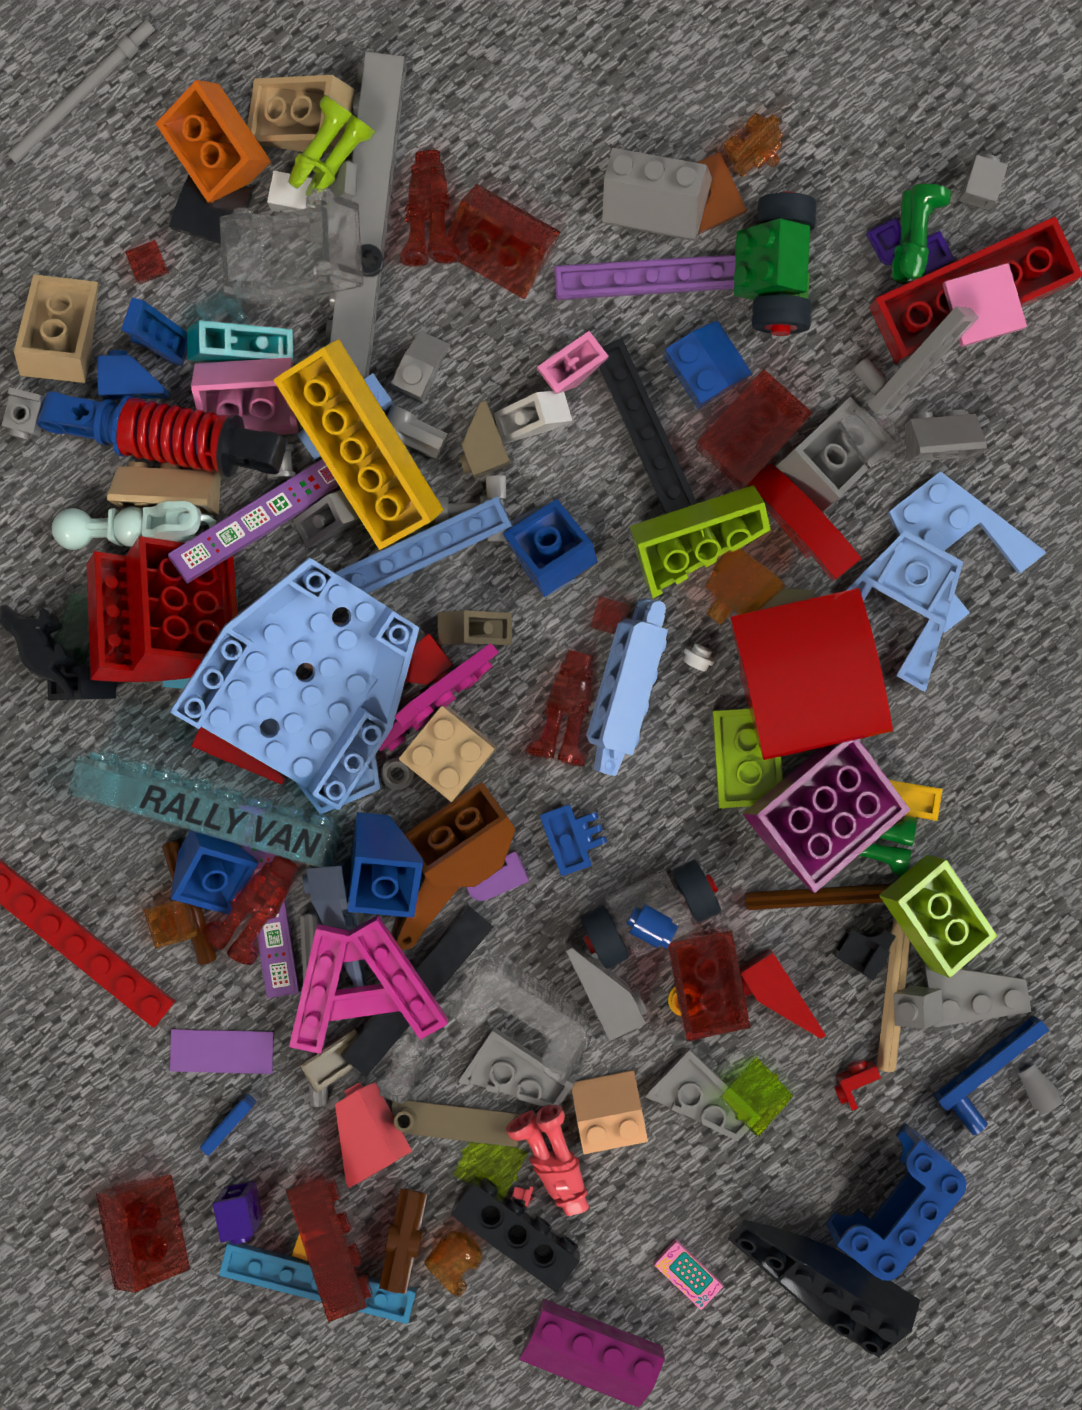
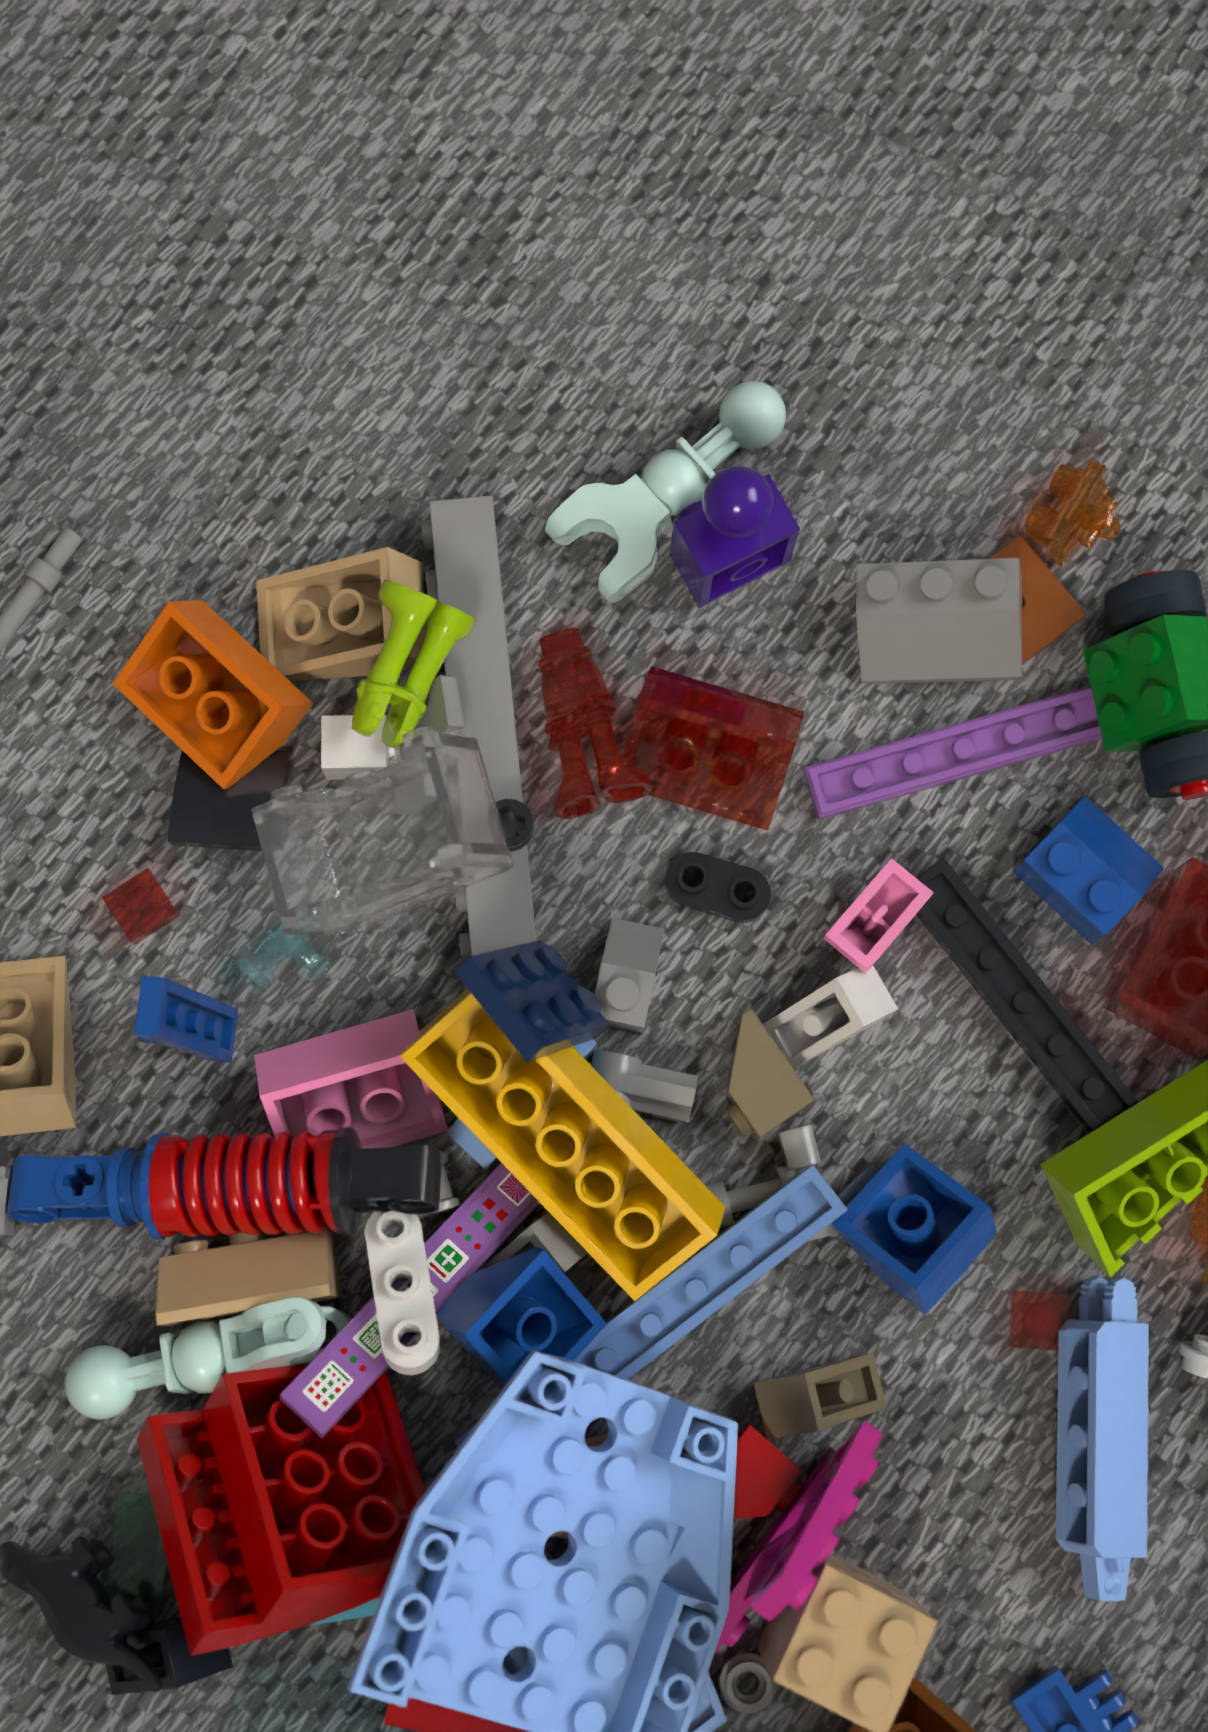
camera: 15 degrees left, 10 degrees down
(123, 376) = (142, 1103): blue slope -> none
(237, 342) = (317, 1004): teal slope -> none
(252, 523) = (404, 1310): none -> white plate
(313, 535) = (519, 1309): none -> blue slope
(355, 363) = (533, 998): none -> dark blue plate
(485, 326) = (716, 891): none -> black plate
(514, 74) = (672, 480): none -> light aqua piece
(541, 112) = (732, 534): none -> dark purple brick
(569, 696) = (1009, 1478): clear red piece -> none

